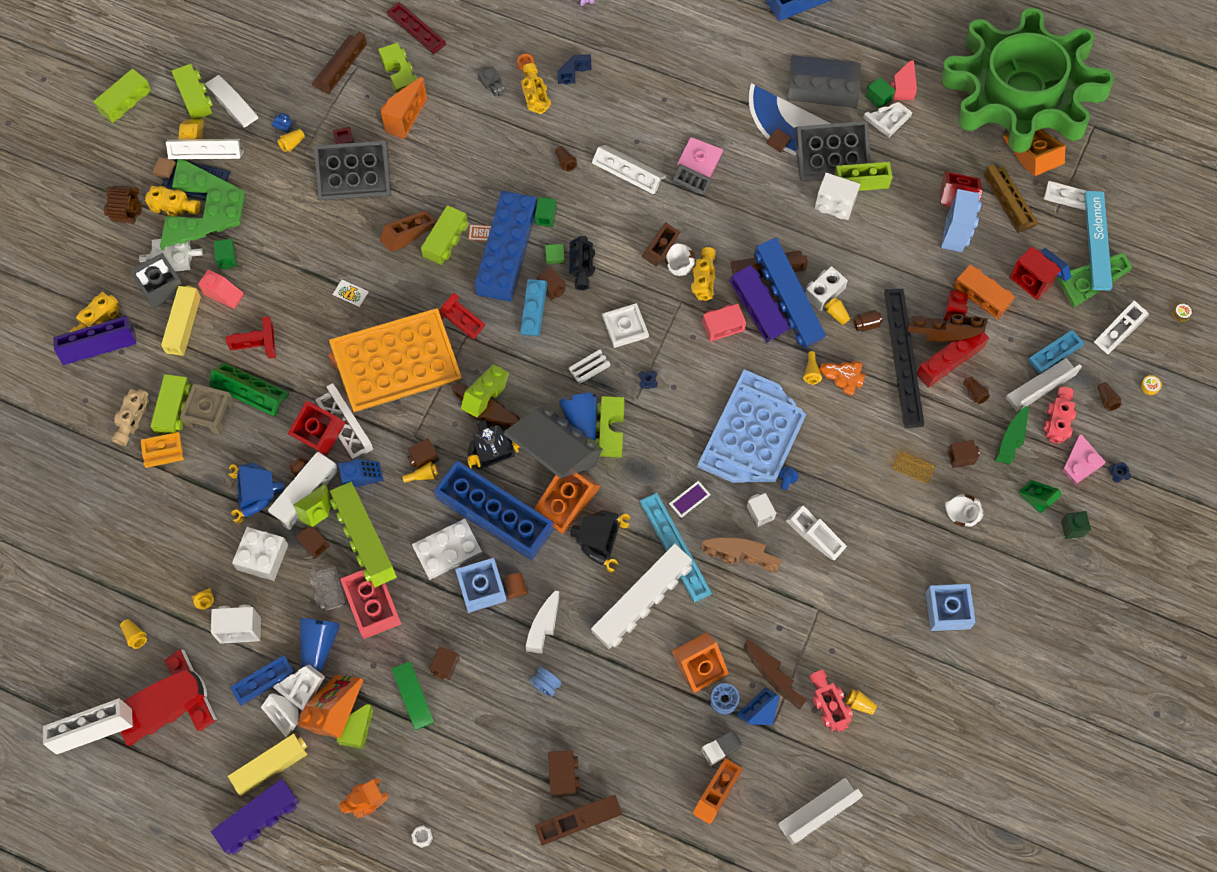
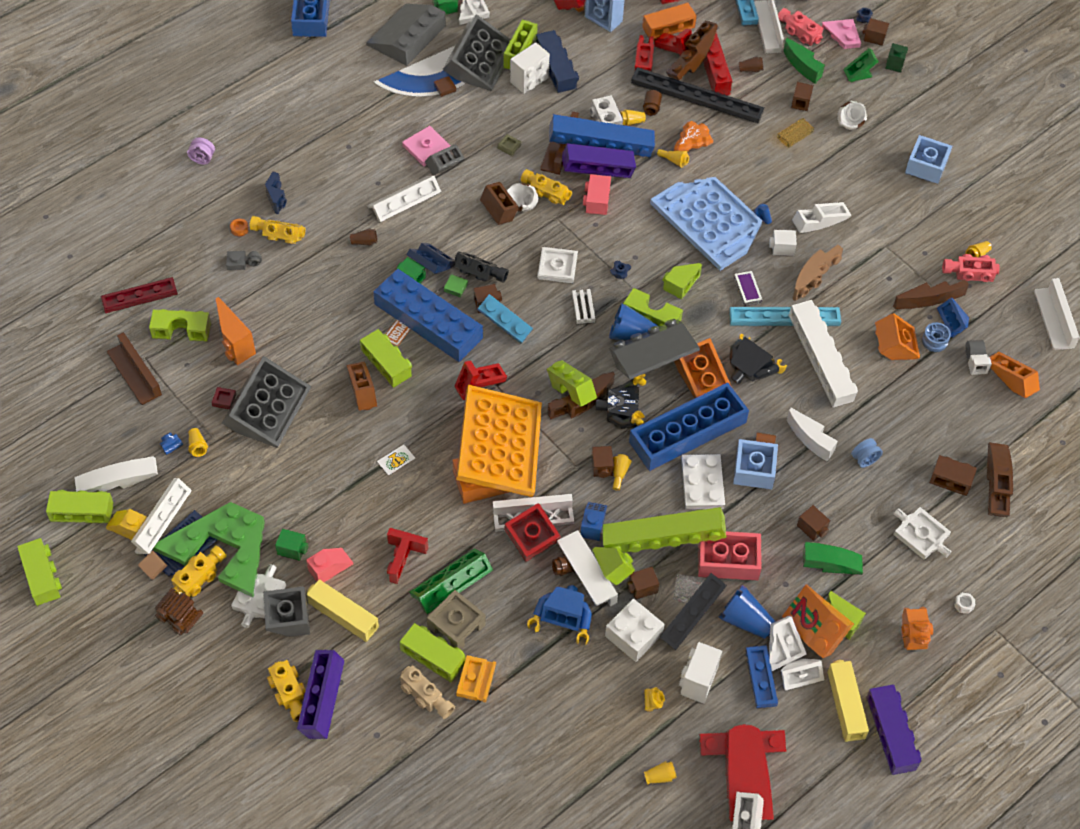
camera: 65 degrees left, 10 degrees down
(296, 593) = (693, 611): none -> black plate
(482, 768) = (922, 533): none -> white plate
(569, 219) = (431, 258): none -> dark blue slope
(664, 436) = (681, 279): none -> lime slope
(742, 224) = (509, 145): none -> olive tile
(866, 216) = (560, 67): none -> dark blue brick
(927, 288) = (644, 54): none -> red hinge
(1101, 491) = (875, 31): none -> reddish brown brick

